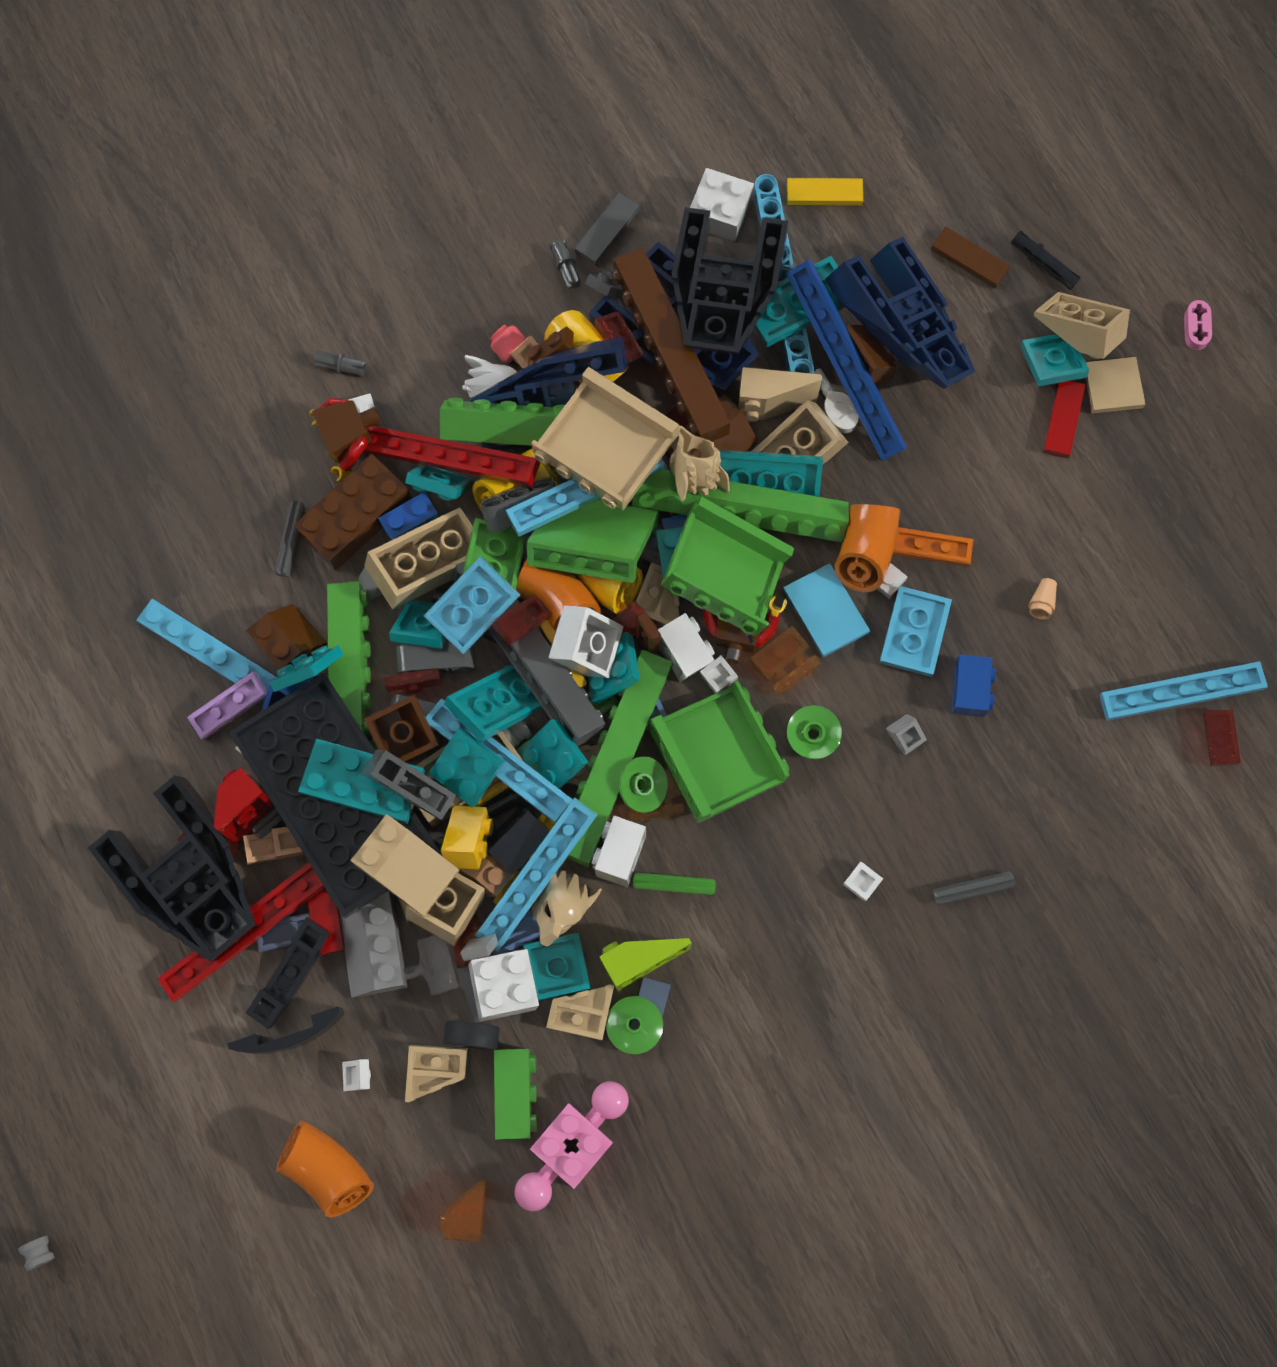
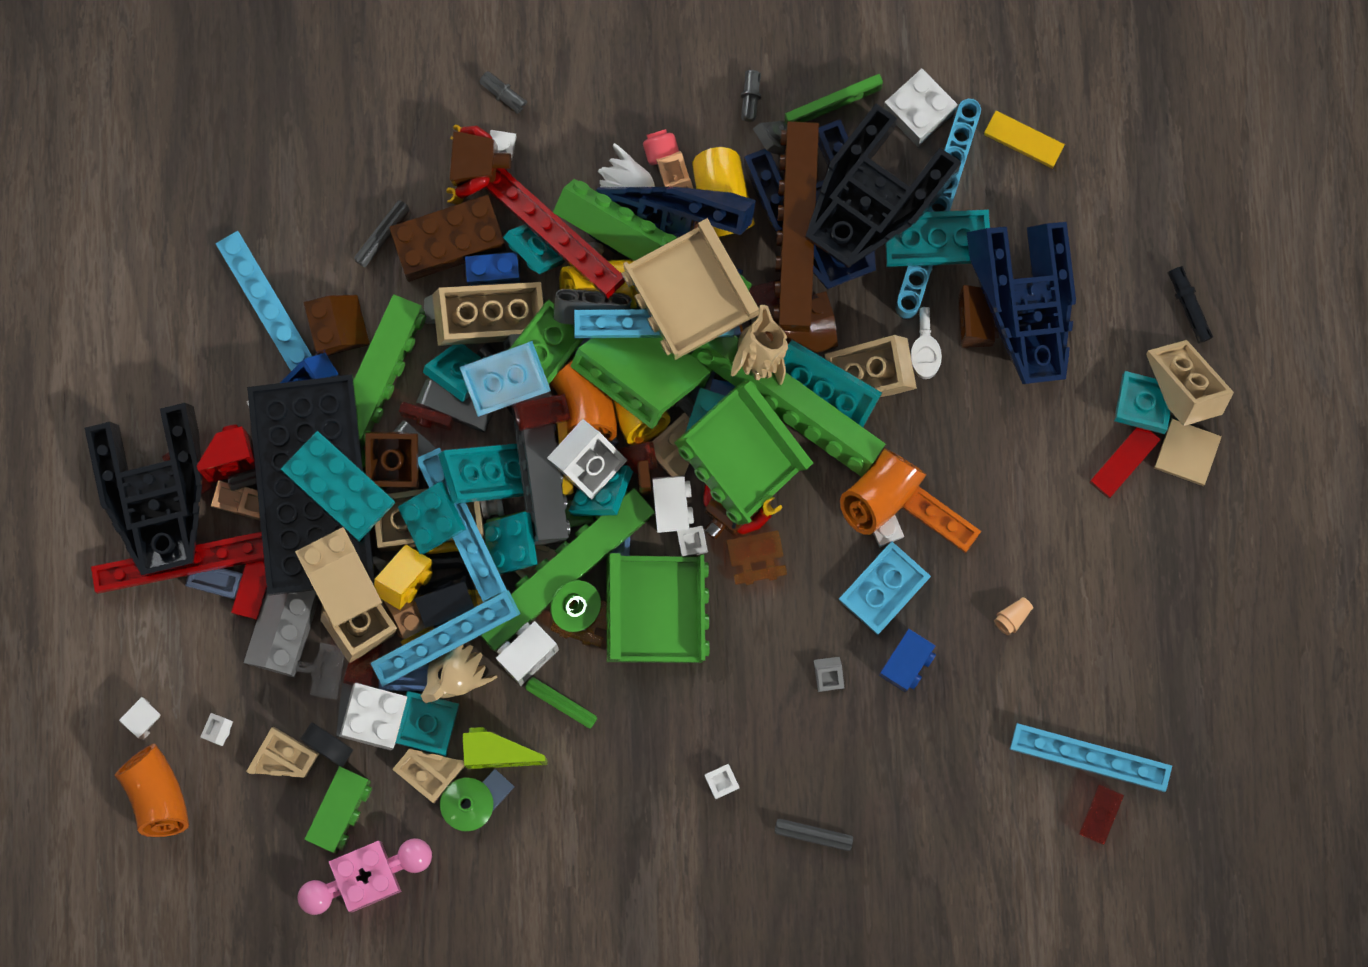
camera: 25 degrees right, 5 degrees up
(228, 705) = (258, 359): lavender tile -> none
(275, 1102) = (140, 718): none -> white panel
(290, 973) = (202, 617): black slope -> none
(305, 667) = (338, 362): teal plate -> none
(321, 1023) = (208, 672): black slope -> none
(408, 783) = (374, 510): dark grey slope -> none
(466, 1215) = (251, 888): clear orange slope -> none
(479, 947) = (368, 675): light grey tile -> none
(555, 344) = (690, 177): reddish brown plate -> none
(607, 229) = (806, 79): dark grey tile -> none
(614, 326) = (757, 187): clear red plate -> none
(646, 228) = (835, 100): none -> bright green tile
(774, 392) = (869, 311): tan slope -> none
(819, 720) = (751, 619): bright green dish -> none
(826, 610) = (816, 530): medium azure tile -> none
(846, 360) = (949, 315): blue plate -> none
(970, 257) = (1123, 268): reddish brown tile -> none
(1192, 325) = (1302, 437): bright pink beam -> none

